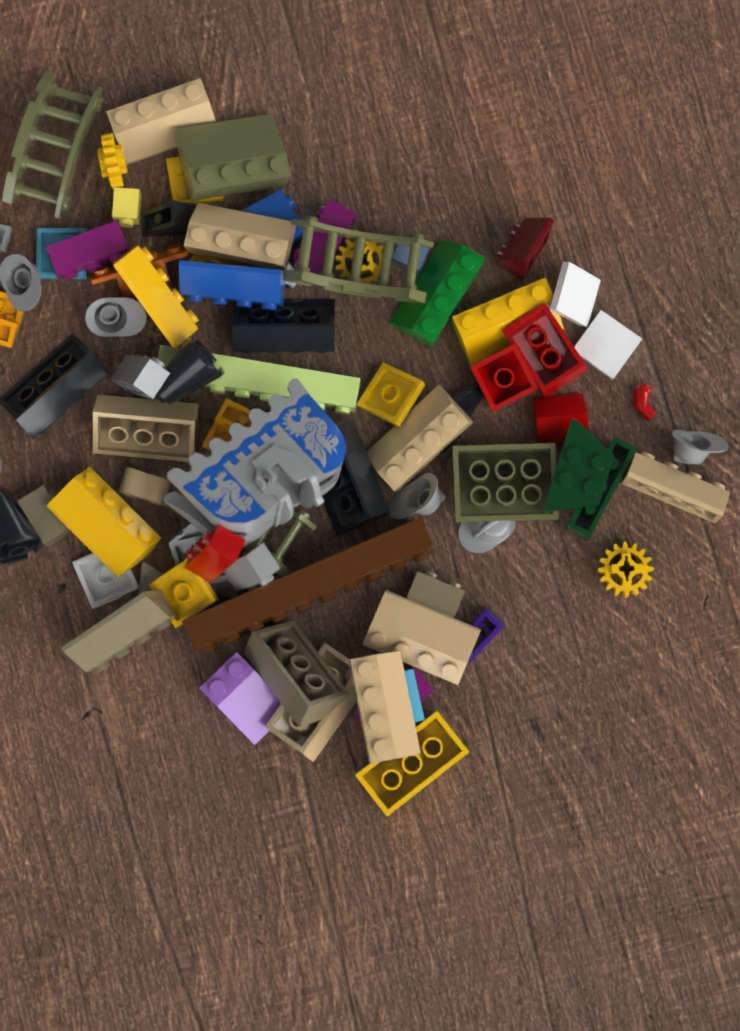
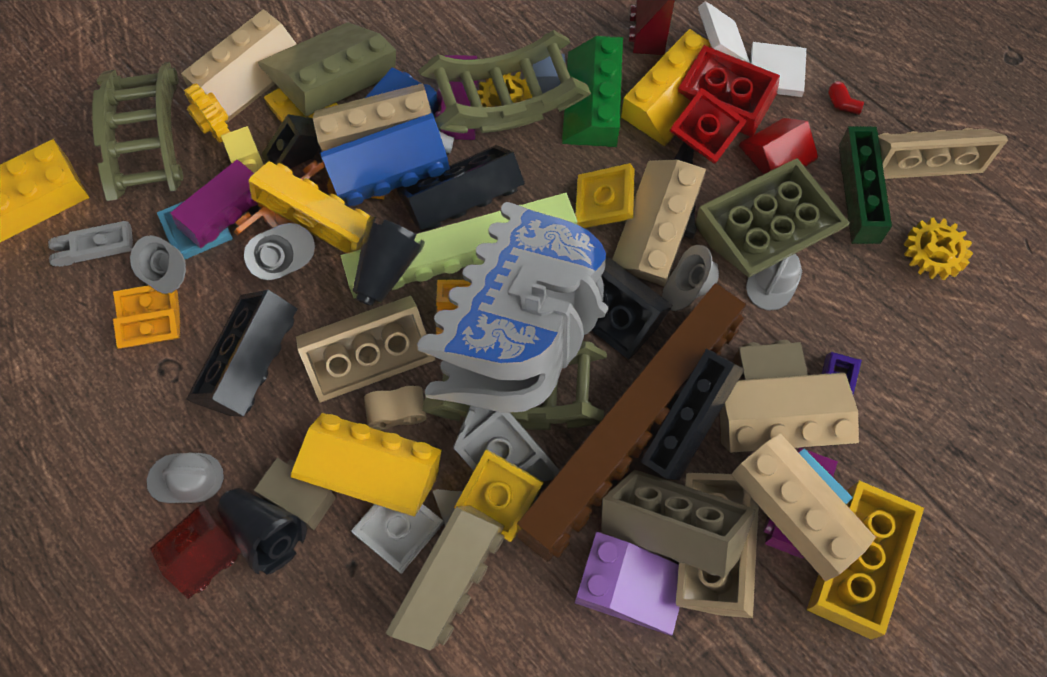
camera: 25 degrees left, 15 degrees down
(140, 375) = (334, 288): light grey brick -> none
(213, 553) = (517, 420): red brick -> none
(252, 568) = (563, 425): light grey brick -> none
(348, 605) = (692, 415): none -> black brick
(579, 471) = (840, 169): dark green wing -> none
(695, 446) = (921, 113): light grey piece -> none

